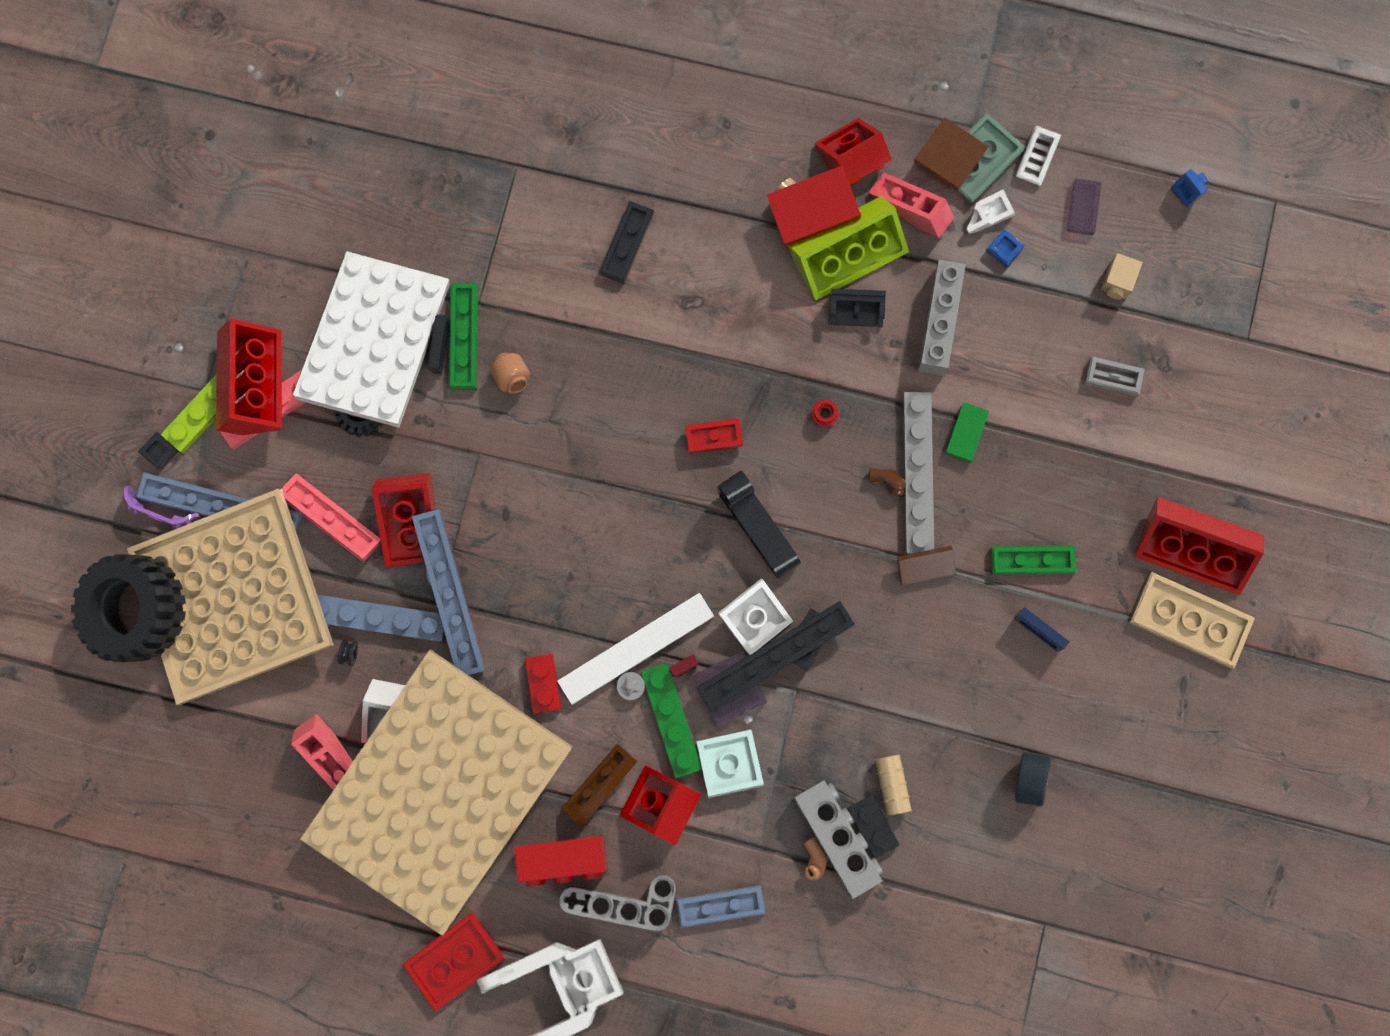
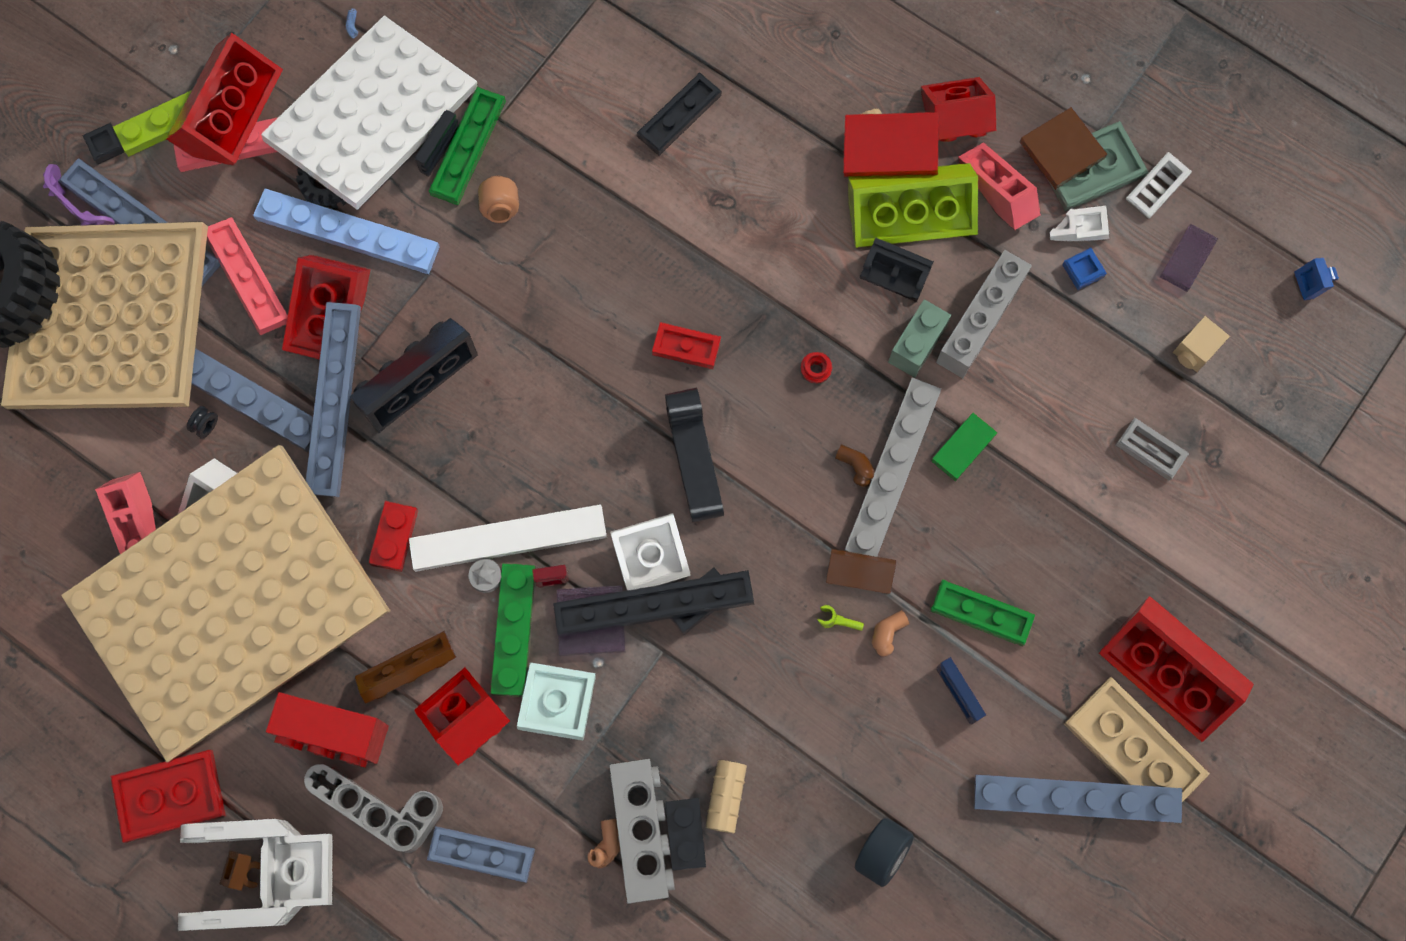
camera: 20 degrees right, 5 degrees down
(318, 262) = (350, 23): none -> light blue leg
(394, 447) = (346, 231): none -> light blue plate
(504, 545) = (414, 374): none -> black slope
(535, 997) = (236, 869): none -> reddish brown tile
(898, 358) = (919, 338): none -> sand green brick
(925, 610) = (838, 620): none -> lime hand
(963, 605) = (885, 630): none -> nougat arm
(1162, 677) = (1078, 798): none -> sand blue plate

